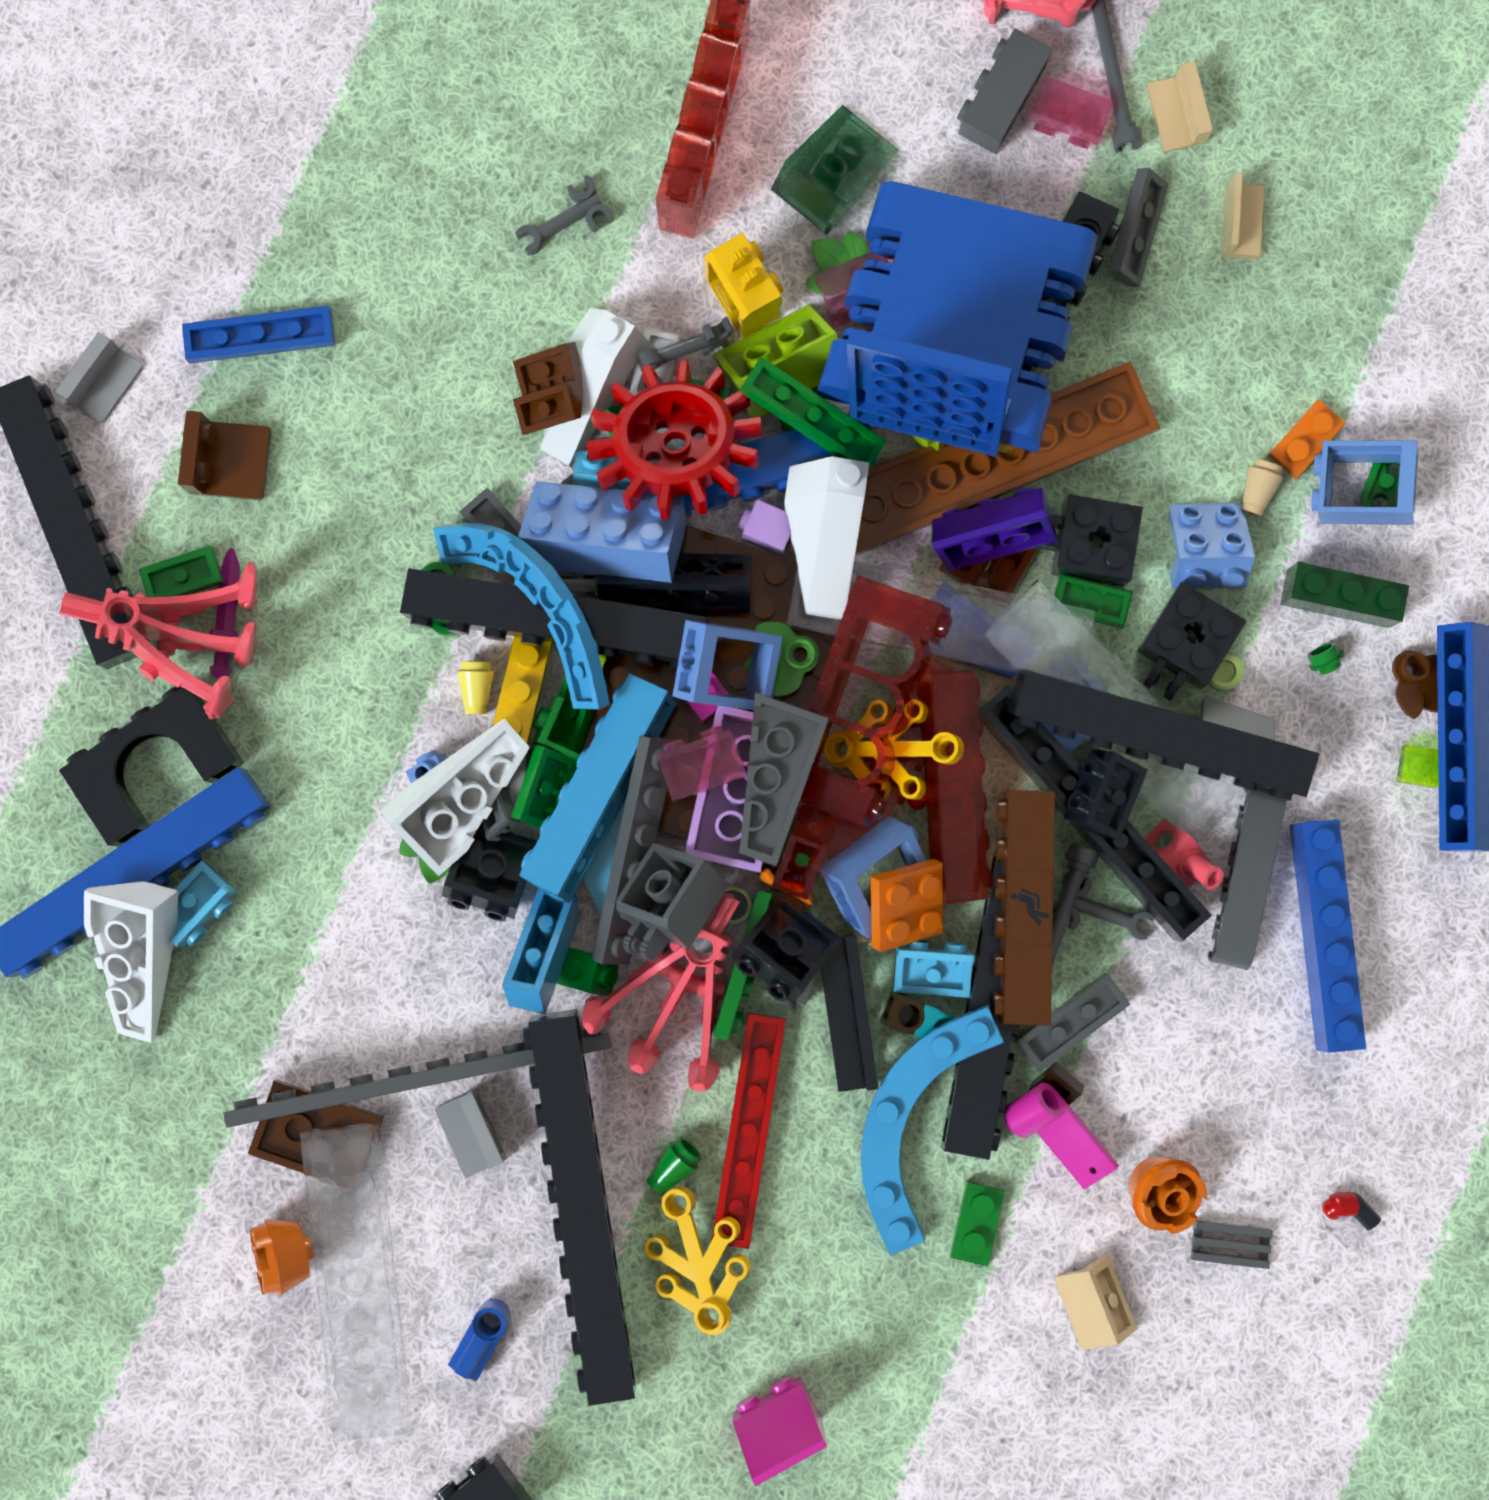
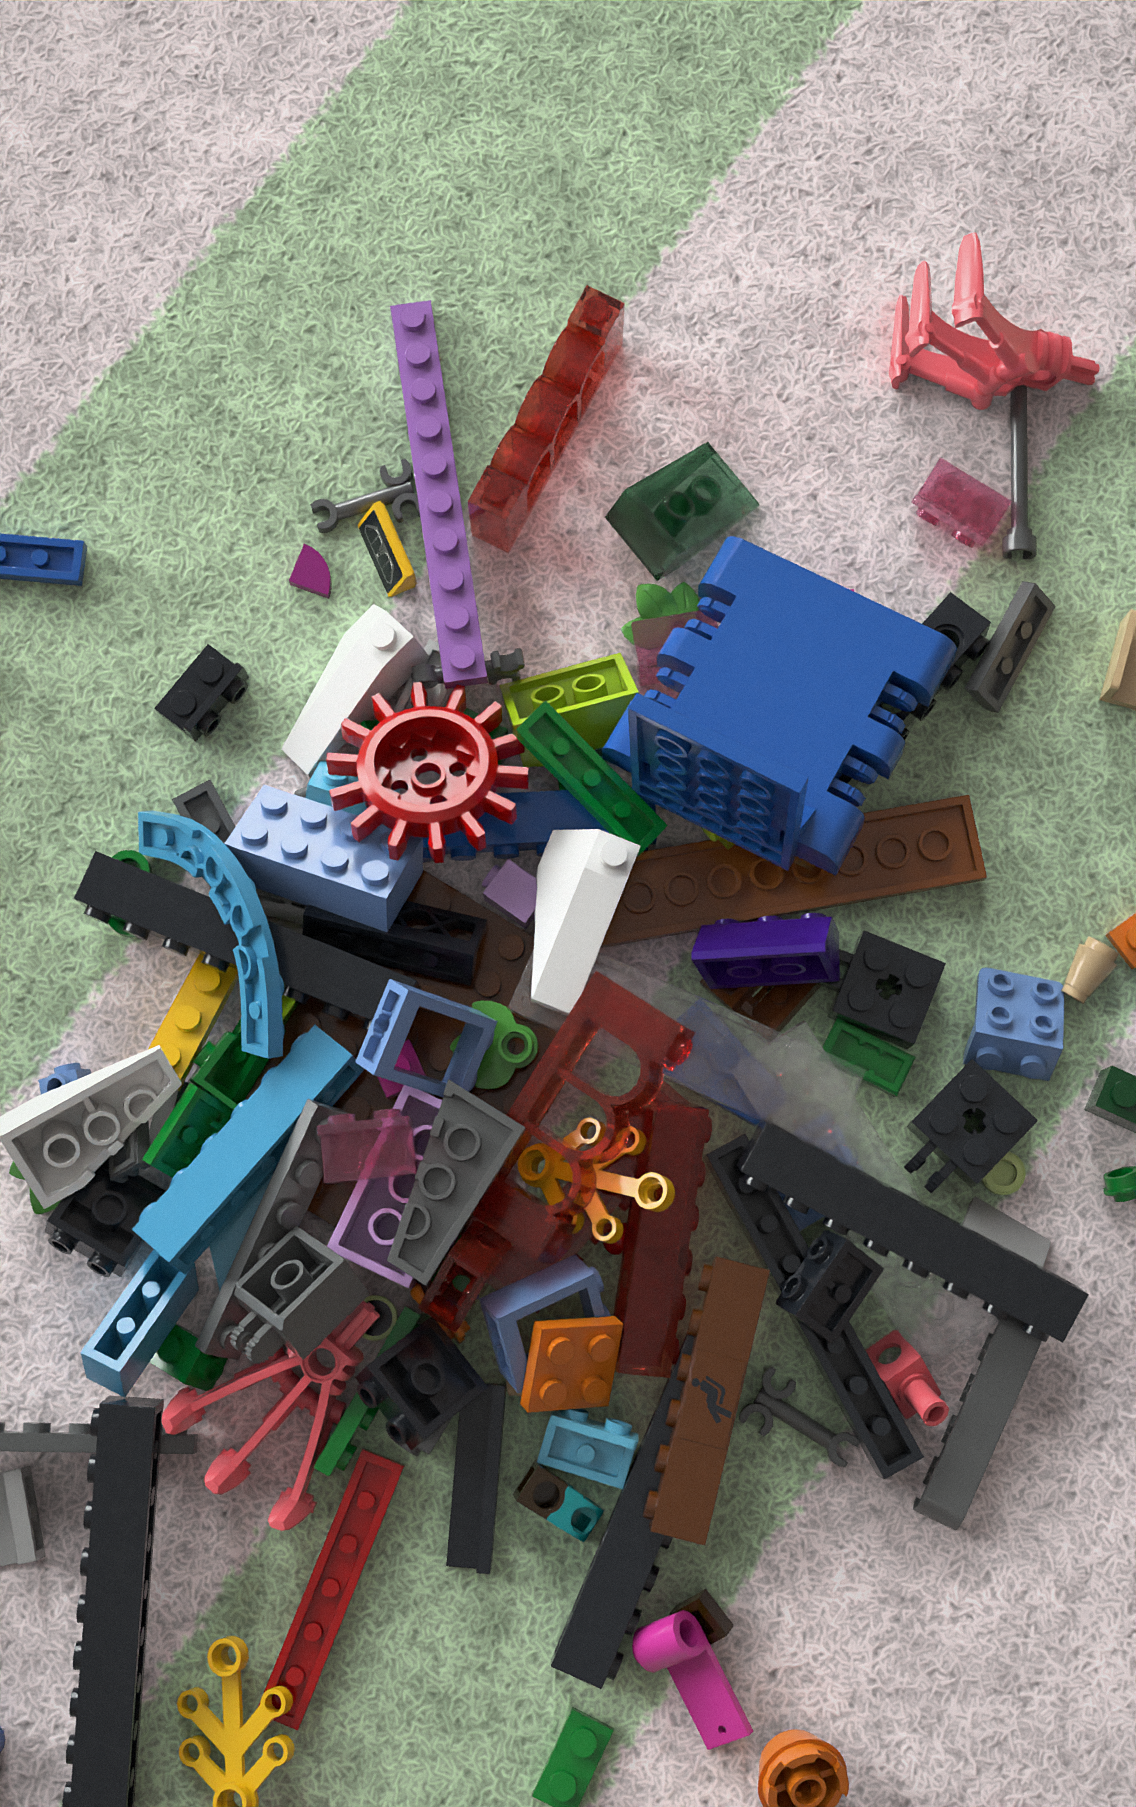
camera: 15 degrees right, 5 degrees down
(462, 415) = (203, 693): none -> black bracket
(475, 685) = (143, 999): light yellow cone -> none
(530, 291) = (311, 573): none -> magenta tile
(549, 388) = (305, 684): reddish brown slope -> none
(590, 258) = (386, 550): none -> slope
(624, 199) = (438, 496): none -> medium lavender plate
(675, 1164) = (236, 1609): green cone -> none
(743, 285) = (548, 617): yellow hinge -> none
(891, 1108) = (496, 1606): dark azure plate -> none
(1003, 90) = (890, 463): dark grey brick -> none
(1073, 1022) = (737, 1546): dark grey plate -> none
(1080, 862) = (786, 1359): dark grey piece -> none
(1180, 109) = (1086, 526): tan panel -> none
(1327, 936) = (1057, 1514): blue brick -> none

